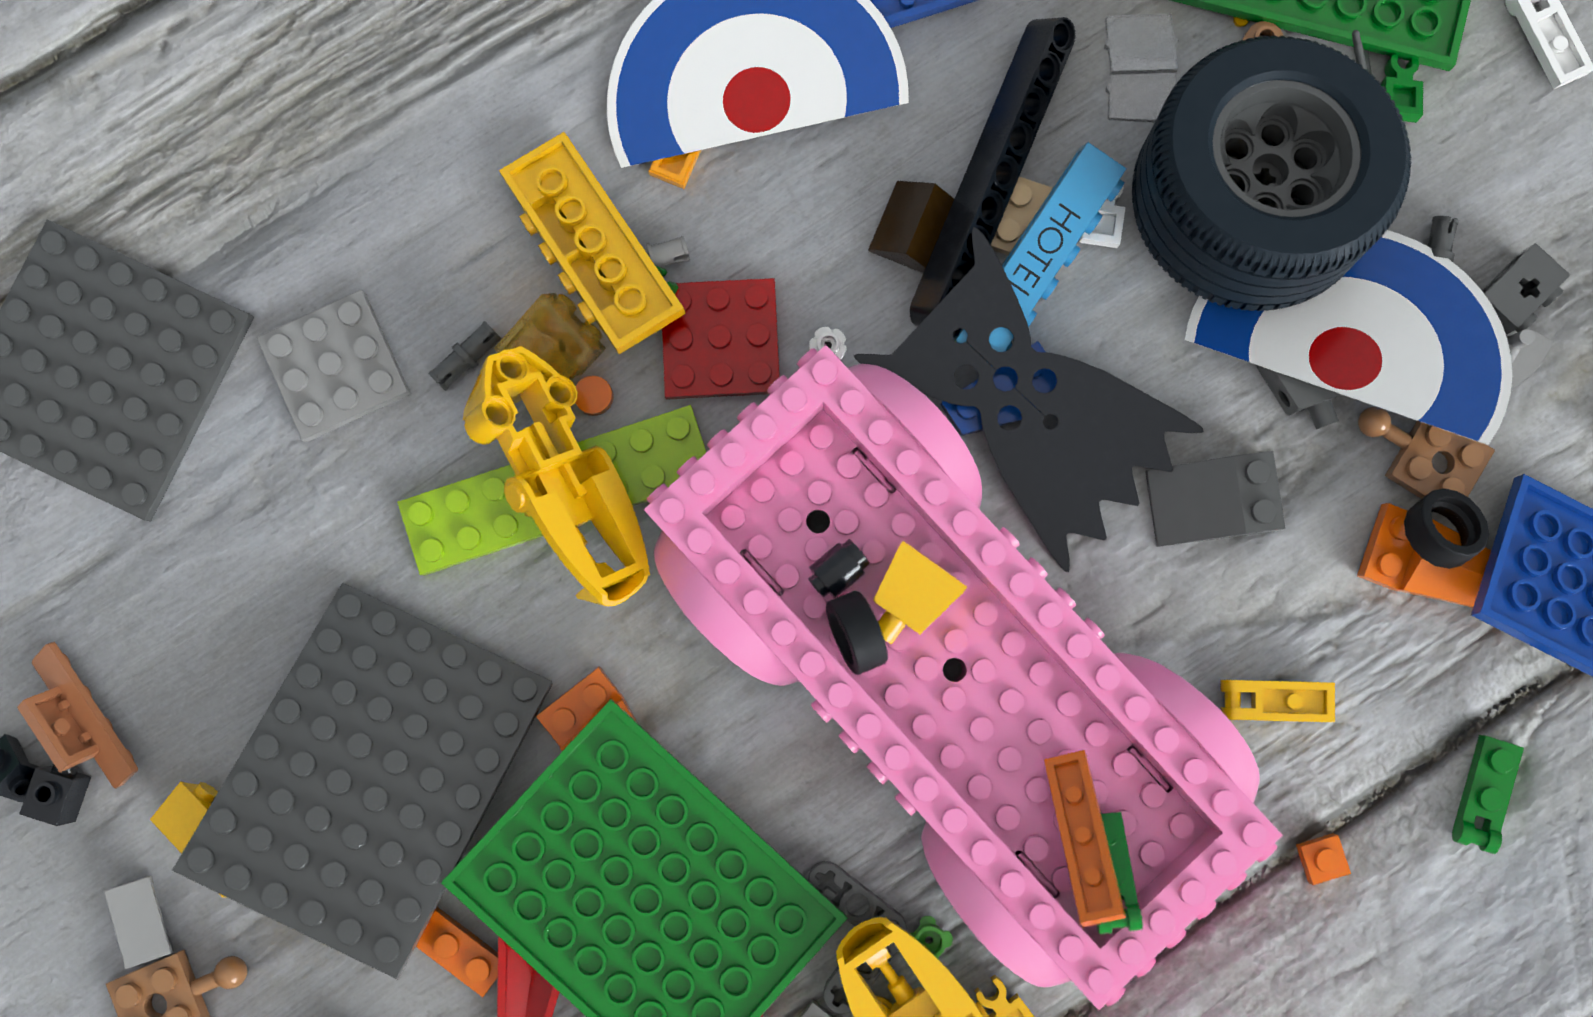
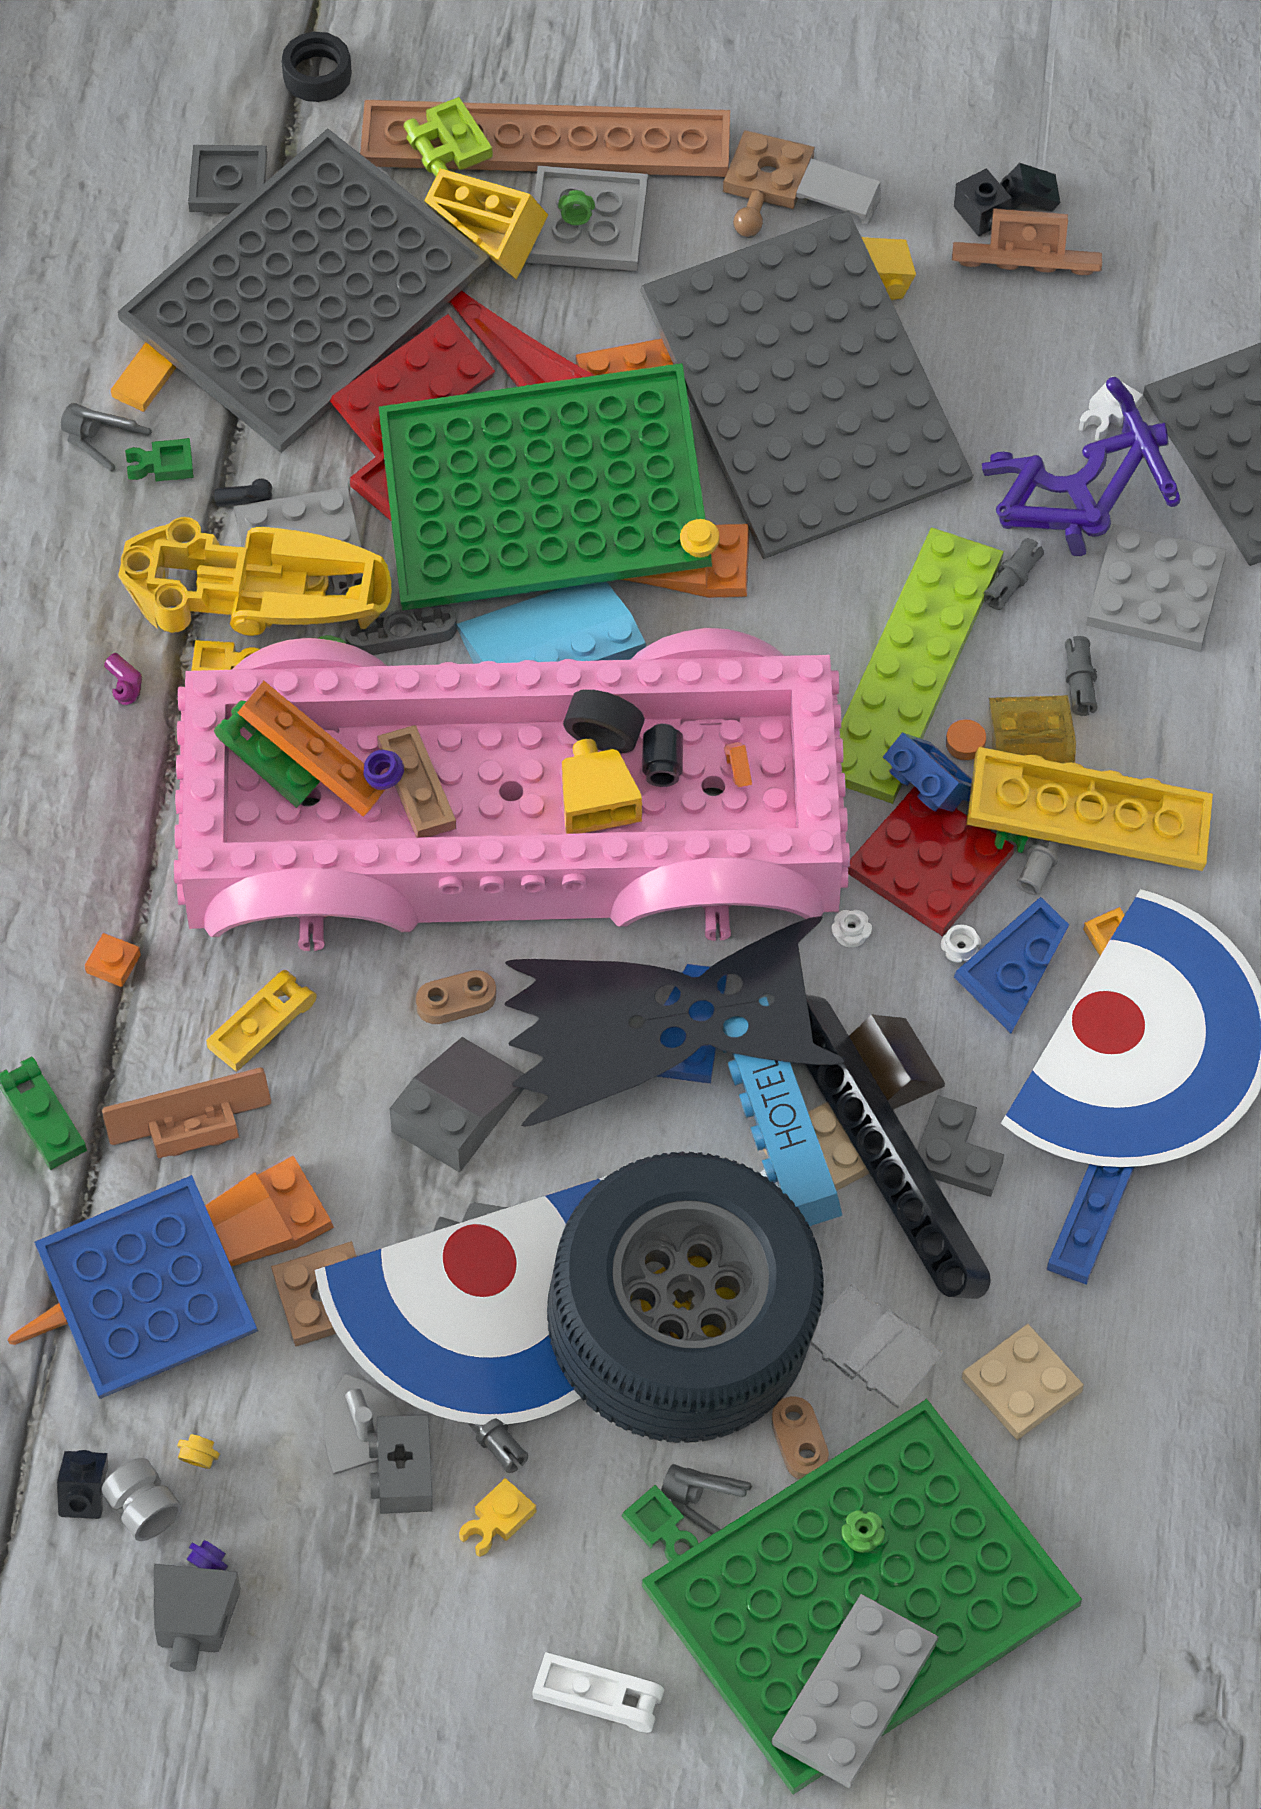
camera: 125 degrees right, 25 degrees down
(183, 533) = (1106, 409): none -> white plate
(312, 451) = (1089, 516): none -> dark purple piece
(411, 479) = (1013, 573): none -> dark grey pin
(553, 476) = (904, 636): yellow piece -> none
(603, 720) = (699, 537): none -> yellow plate
(655, 380) = (930, 771): none -> blue plate
(758, 208) = (1013, 962): none -> blue wing
(773, 247) = (960, 935): none -> white plate
(776, 775) = (559, 625): none -> medium azure slope
(792, 508) = (737, 757): none -> orange tile
(953, 132) = (948, 1154): none -> dark grey plate
(1026, 738) = (419, 786): none -> medium nougat plate
(1056, 774) = (379, 761): none -> dark purple plate
(1131, 579) = (457, 997): none -> medium nougat plate
(1405, 675) = (188, 1115): none -> nougat bracket
(1461, 513) = (304, 1213): black tyre -> none
(1484, 205) = (500, 1513): none -> yellow plate

